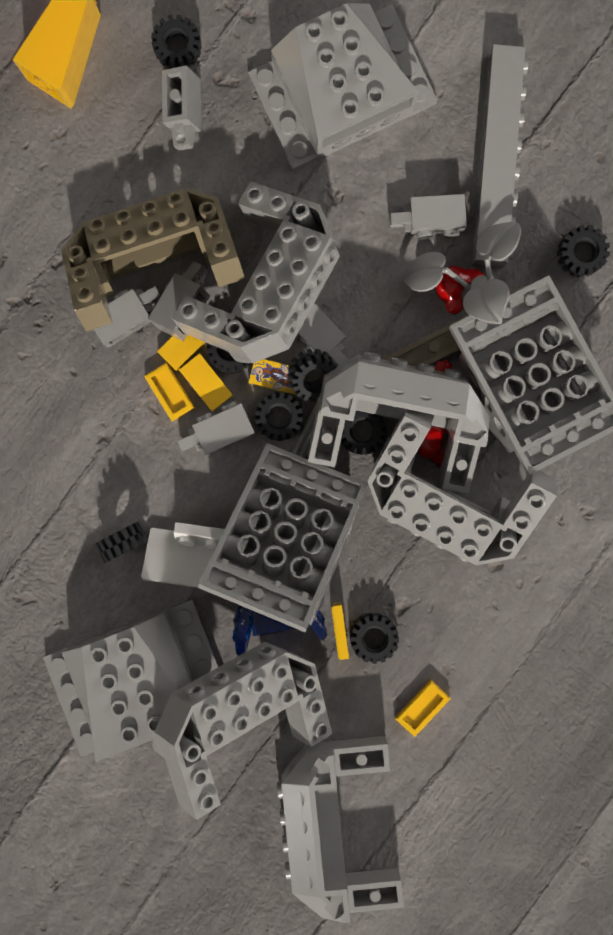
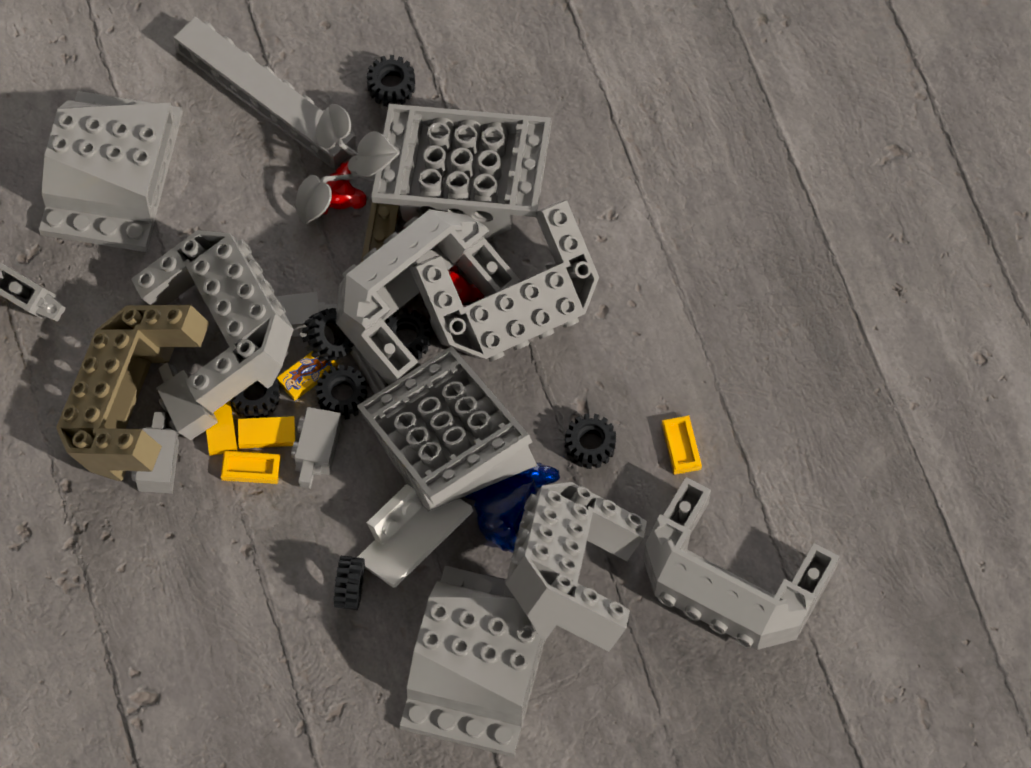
camera: 60 degrees left, 25 degrees down
(339, 630) = (563, 462): yellow tile -> none
(432, 216) = (272, 169): light grey hinge -> none

